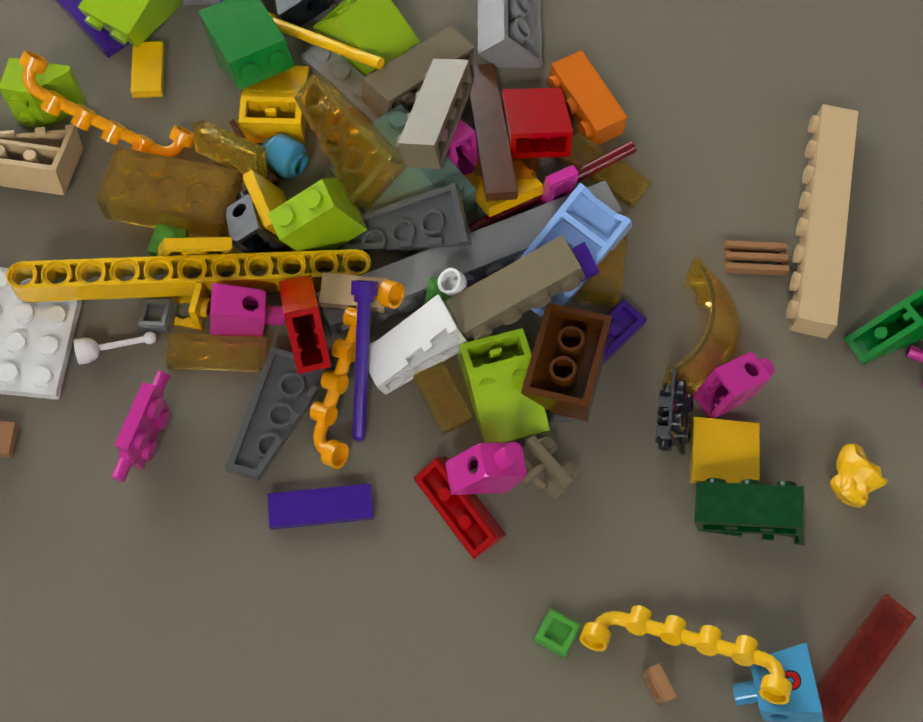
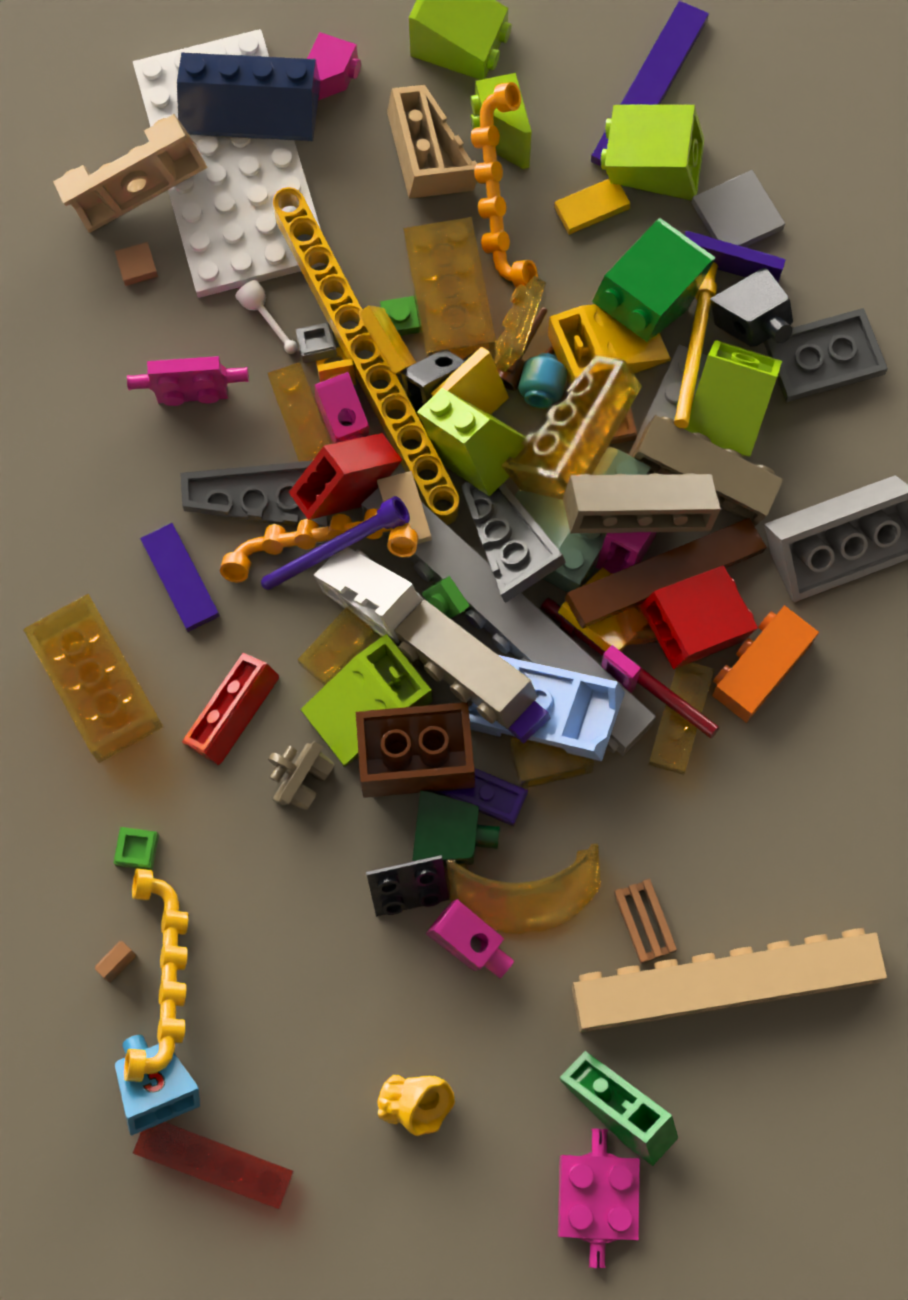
camera: 75 degrees right, 5 degrees up
(389, 611) = (93, 678): none -> clear yellow brick
(452, 282) = (447, 599): white hinge -> none
(498, 471) = (265, 711): dark pink torso -> none
(638, 369) = (450, 830): none -> dark green torso
(724, 450) = (391, 956): yellow tile -> none
(751, 508) = (329, 1001): dark green wedge -> none

